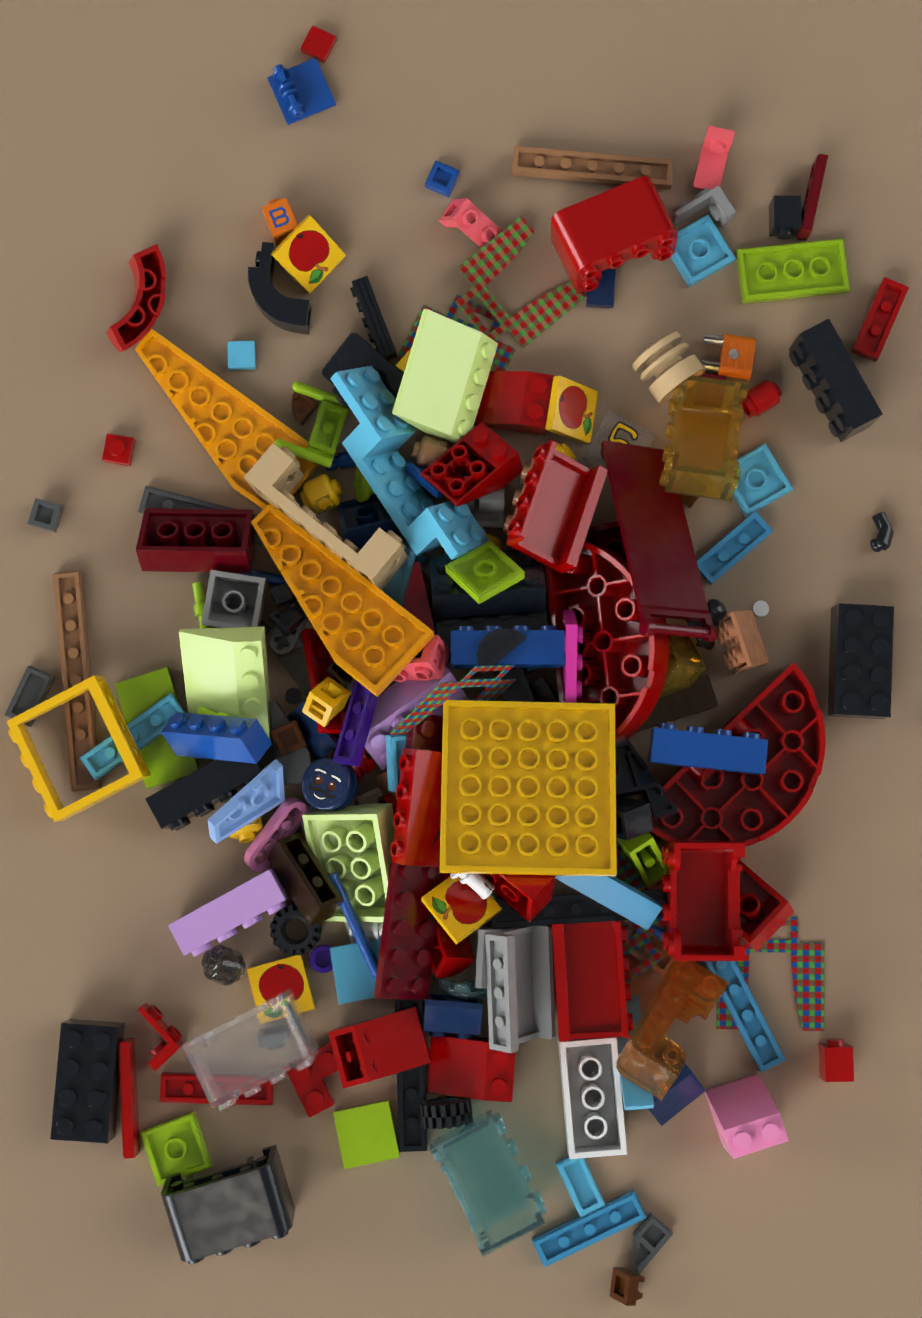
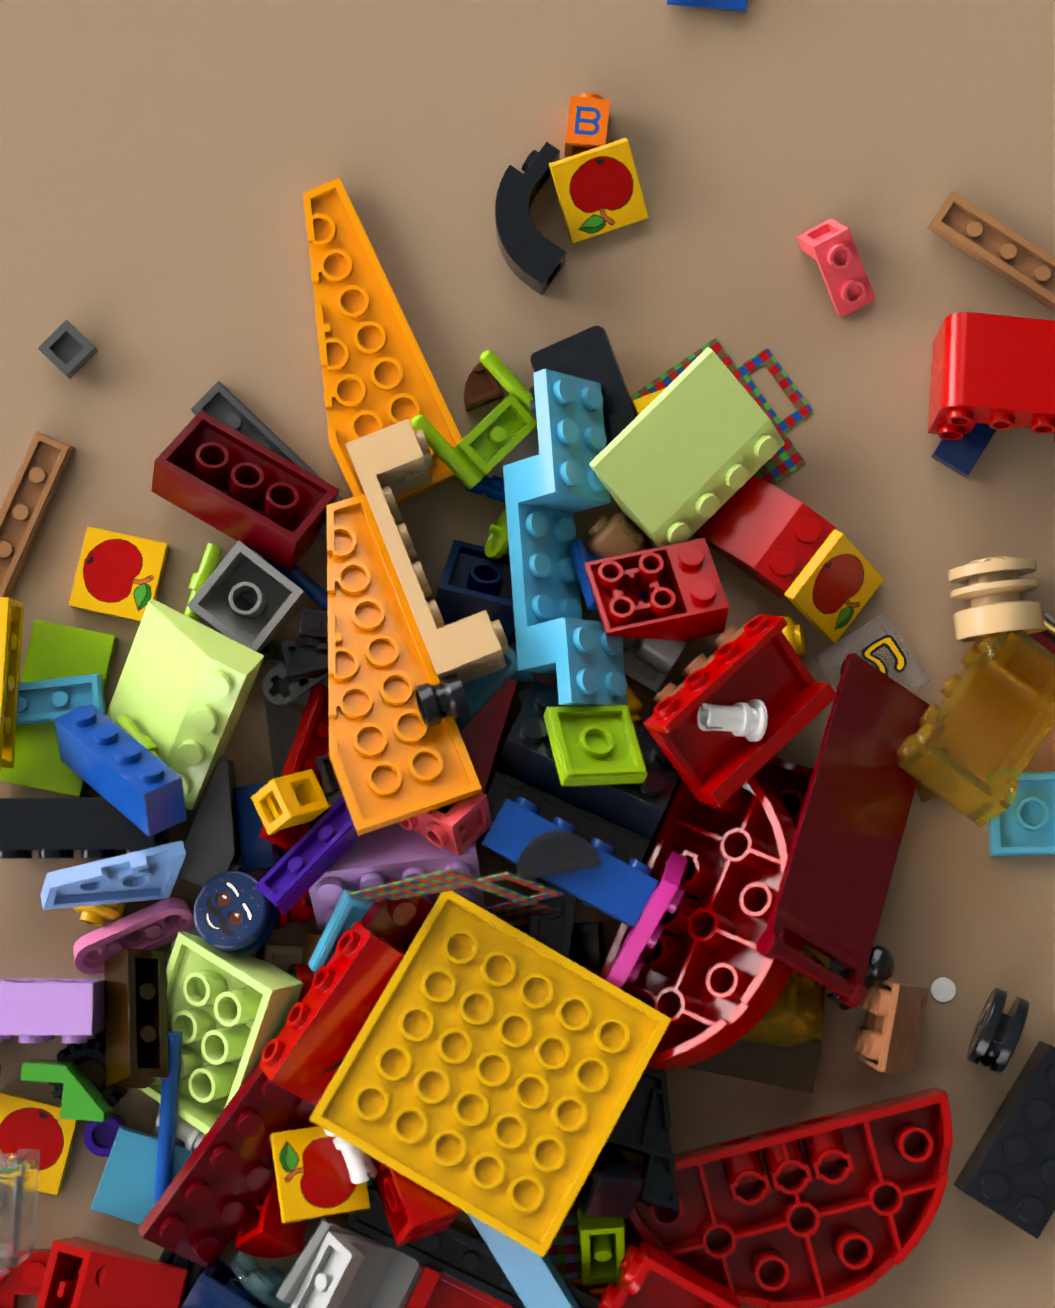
camera: 30 degrees right, 0 degrees up
(118, 449) = (210, 314): red plate -> none
(148, 299) = (354, 141): red brick -> none
(149, 630) = (118, 574): none -> tile
(241, 355) = (438, 276): medium azure tile -> none
(288, 738) = (218, 819): reddish brown tile -> none
(292, 696) = (258, 763): black sticker -> none
(297, 941) = (79, 1096): none -> bright green slope
(321, 493) = (441, 517): yellow head -> none
(373, 317) = (638, 320): black piece -> none
(382, 593) = (441, 700): none -> black wheel
(442, 178) = (832, 184): blue tile -> none
(487, 264) = (833, 329): piece -> none
(560, 511) = (741, 719): none -> white pin
(708, 750) = (763, 1150): blue brick -> none
(733, 547) = (950, 889): dark azure plate -> none
(804, 613) = (996, 1032): none -> black head

